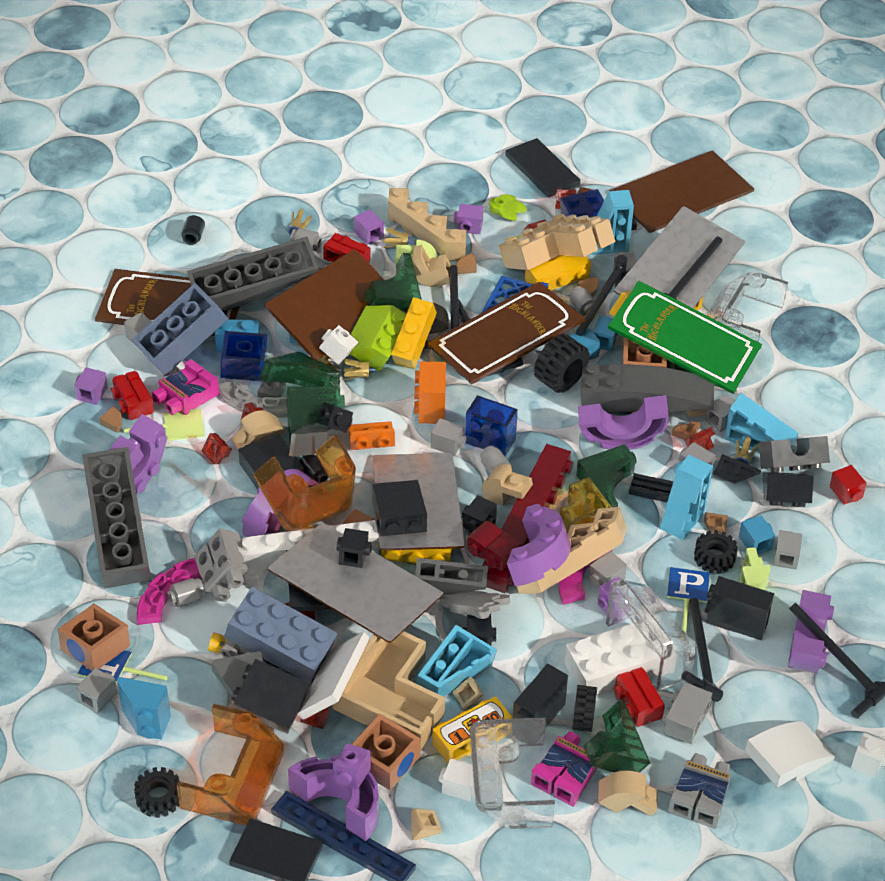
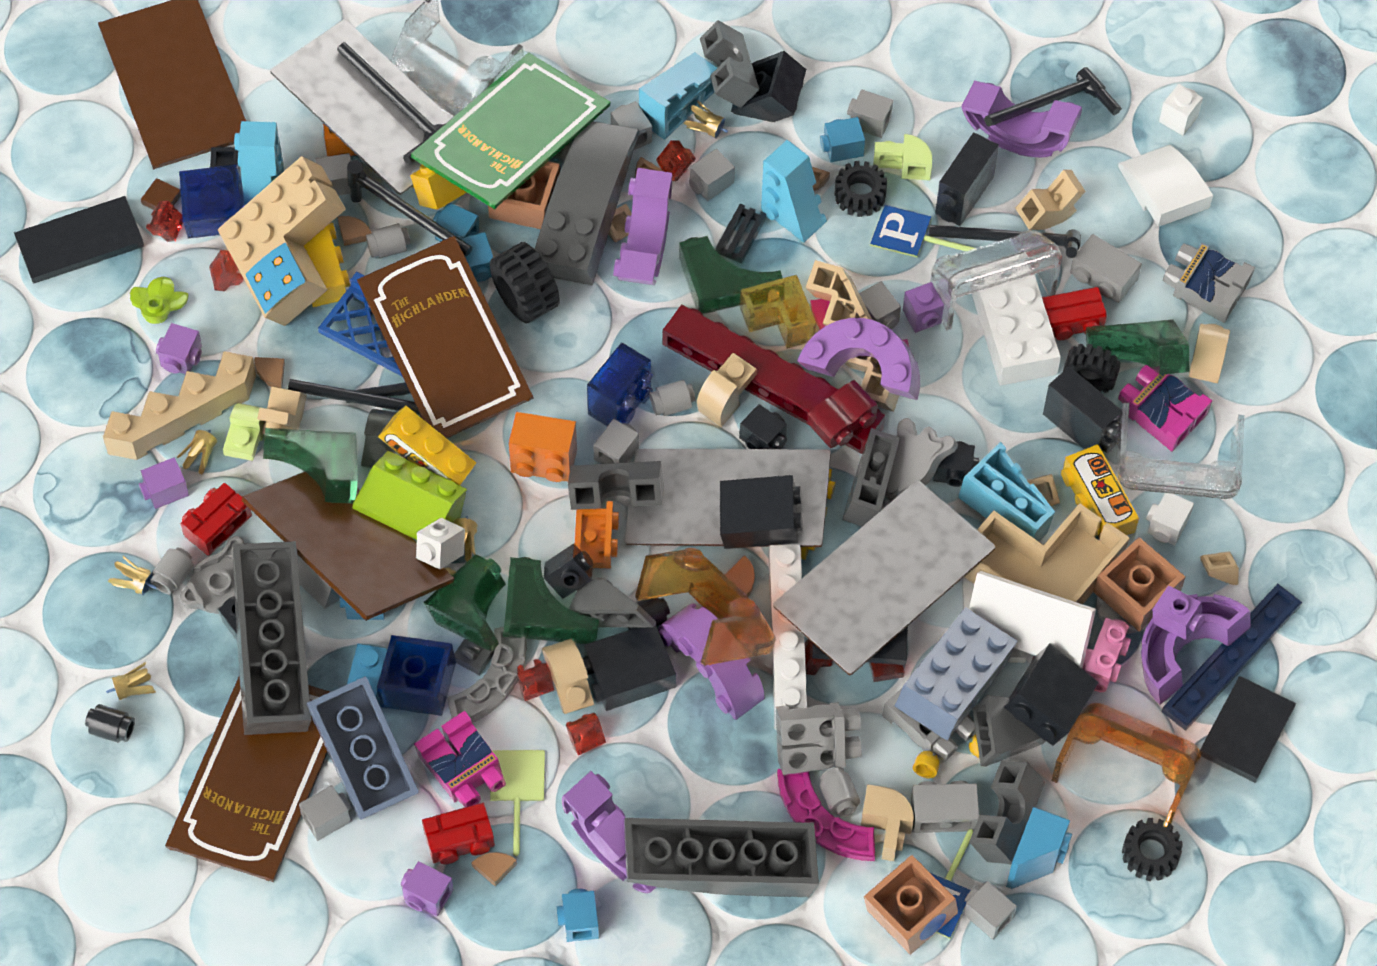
camera: 80 degrees left, 15 degrees up
(73, 462) = (579, 915): none -> dark azure brick
(169, 625) = (888, 811): none -> tan brick
(179, 654) = (944, 807): none -> light grey brick
(196, 696) = (1018, 792): none -> dark grey arch
(221, 232) = (126, 683): none -> pearl gold piece
(319, 740) = (1102, 660): none -> bright pink brick
(353, 547) = (839, 565): black brick -> none
(415, 442) = (594, 483): none -> dark grey arch
(524, 235) = (274, 277): none -> dark azure sticker
(734, 470) = (732, 137): black tile -> none
(738, 671) = (1053, 205): none -> tan brick
(848, 484) = (778, 26): red brick -> none

